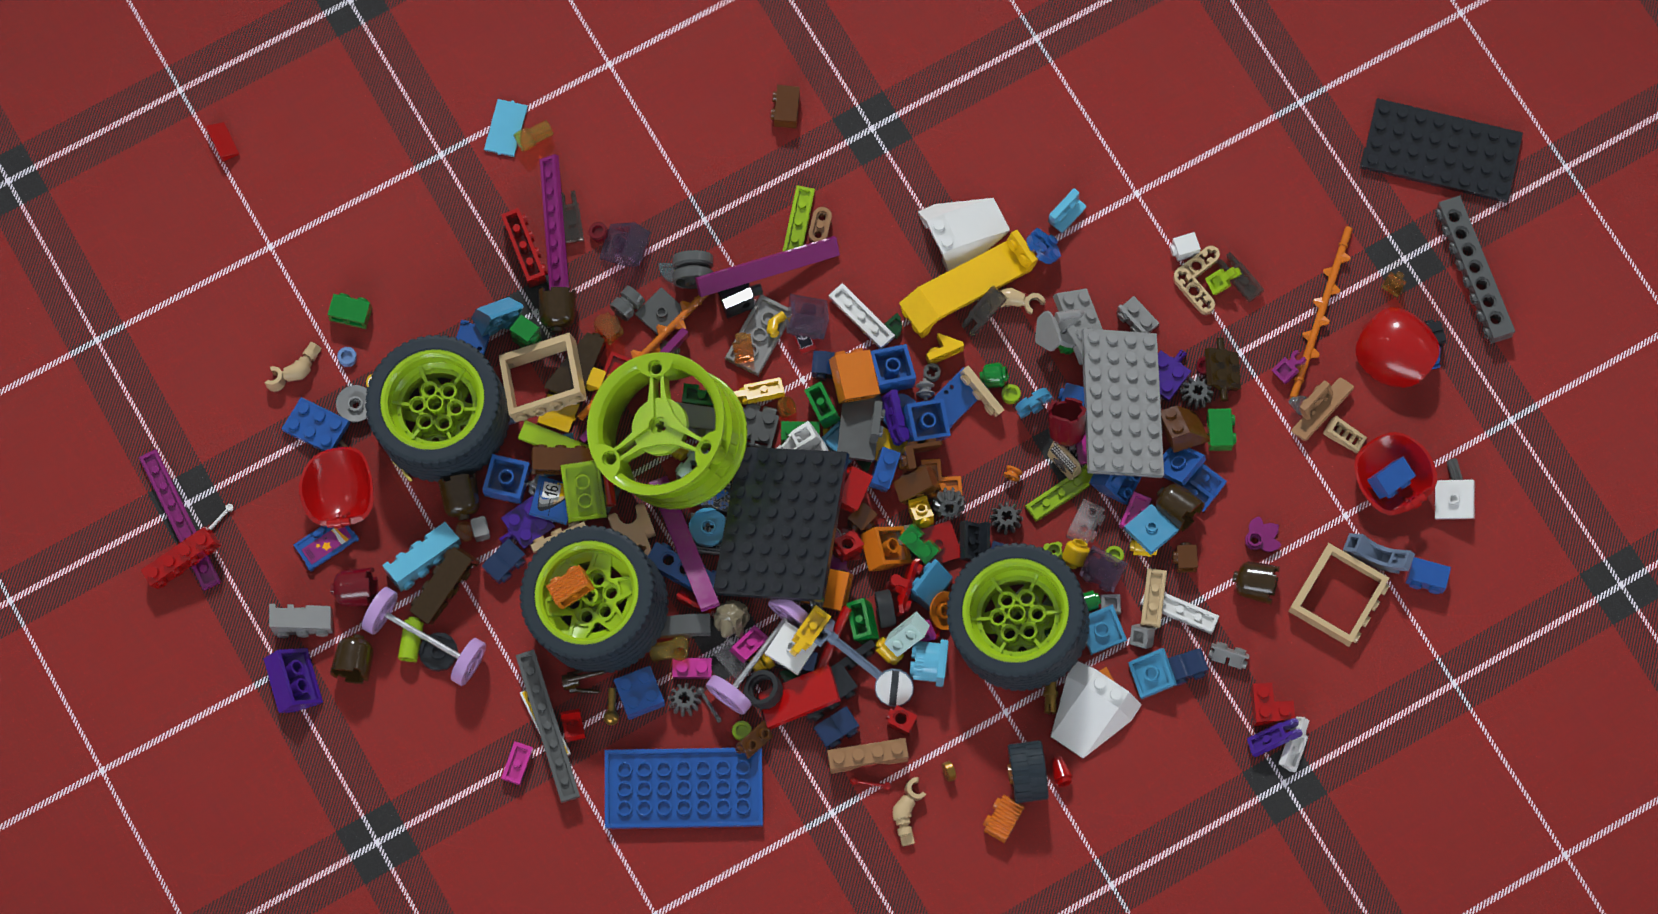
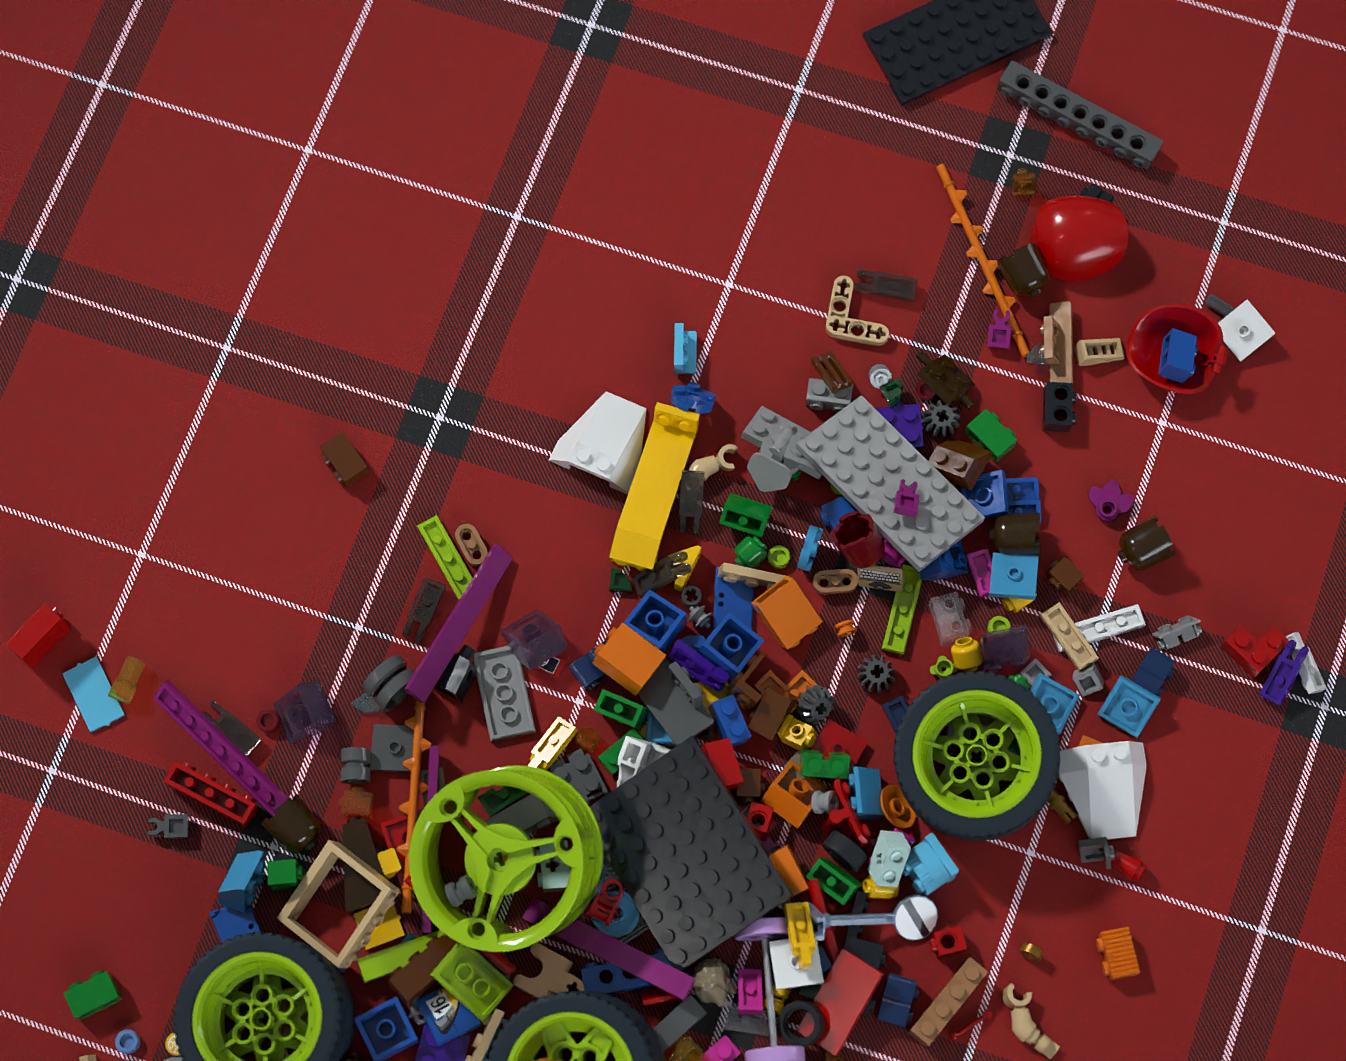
camera: 40 degrees left, 0 degrees up
(483, 249) = (174, 826): none -> dark grey plate
(502, 63) = (39, 635): none -> red brick
(619, 424) = (462, 890): none -> dark grey wheel
(706, 514) = (606, 903): none -> red piece
(743, 347) = (501, 717): clear orange brick -> none
(755, 241) = (424, 607): none -> clear smoke hinge
(773, 322) = (509, 672): yellow arm -> none
(861, 316) = (582, 597): white plate -> none
(898, 566) = (824, 802): none -> light grey wheel
(924, 341) = (662, 574): none -> clear smoke hinge
(973, 539) = (868, 719): black bracket -> none
(982, 431) = (787, 612): none -> orange brick
(1011, 348) = (745, 515): none -> green brick
(1027, 771) = (1106, 892): black wheel -> none
(1033, 438) = (834, 579): none -> medium nougat plate
(1049, 743) = (1096, 850): none -> dark grey bracket
(1119, 420) = (906, 500): none -> magenta plate
(1154, 291) = (835, 371): none -> reddish brown tile
(1180, 348) = (892, 391): none -> dark green tile
(1181, 332) = (879, 375): none -> light grey wheel
(1185, 246) = (815, 297): white brick -> none
(1220, 280) = (873, 302): lime plate -> none
(1279, 445) = (1054, 406): none -> black brick
(1325, 626) = (1188, 507): tan window -> none
(1340, 340) = (1024, 270): none -> dark brown cylinder
(1376, 555) = (1227, 434): sand blue arch -> none
(1428, 575) = (1281, 416): blue brick -> none

